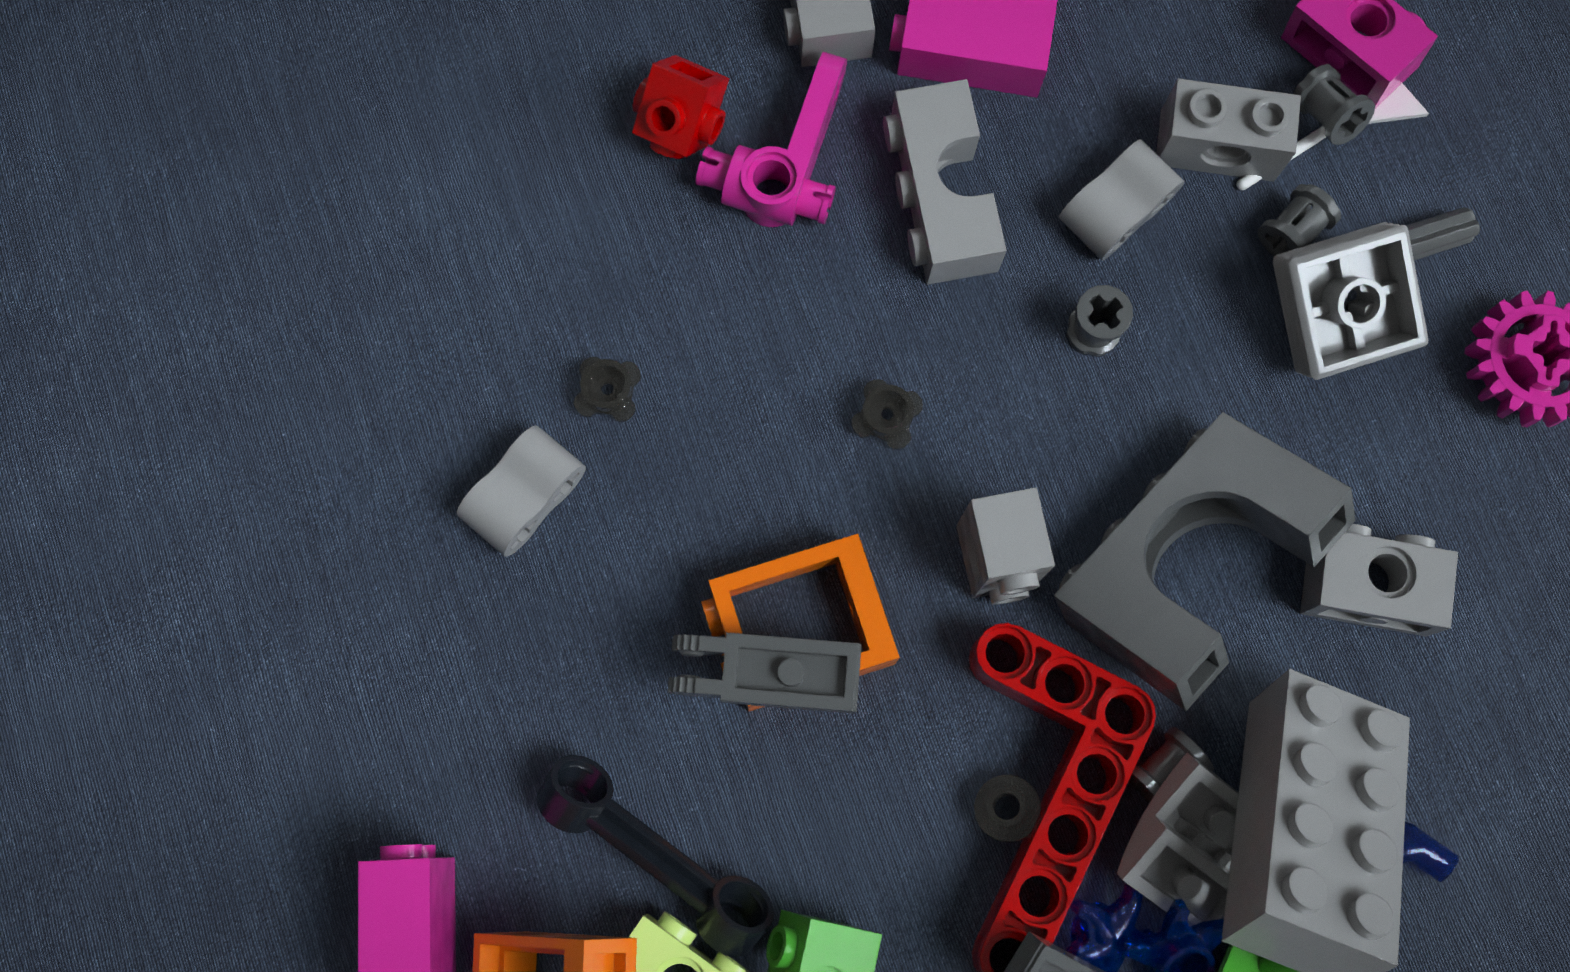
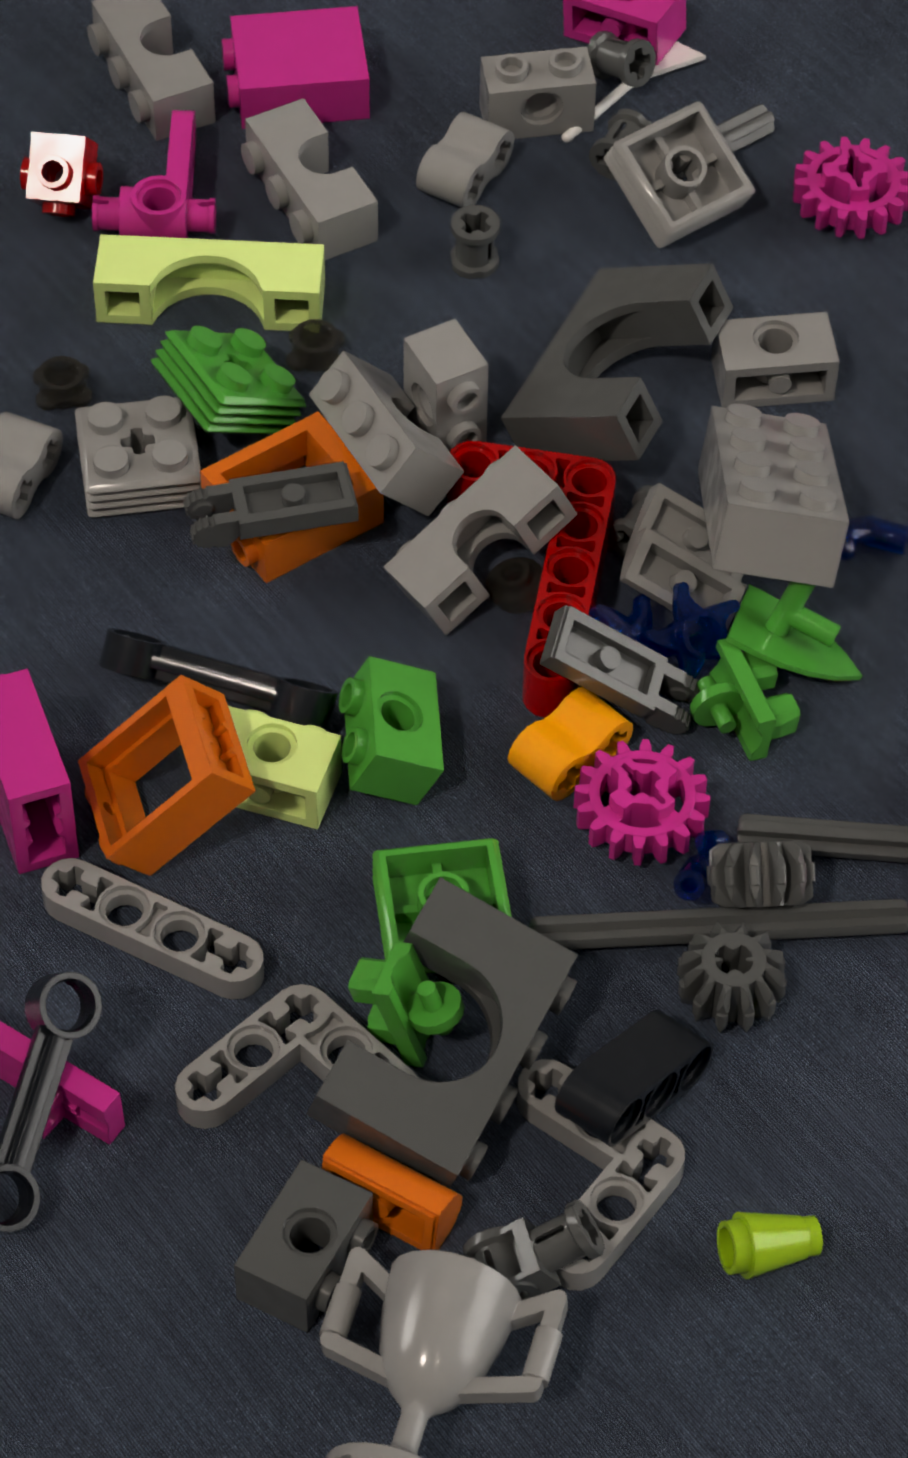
camera: 15 degrees left, 25 degrees down
(633, 481) = (137, 455): none -> light grey brick
(728, 268) = (148, 274): none -> yellowish green arch
(774, 457) = (228, 381): none -> bright green brick
(922, 632) = (371, 420): none -> light grey arch
(925, 786) = (506, 502): none -> light grey arch

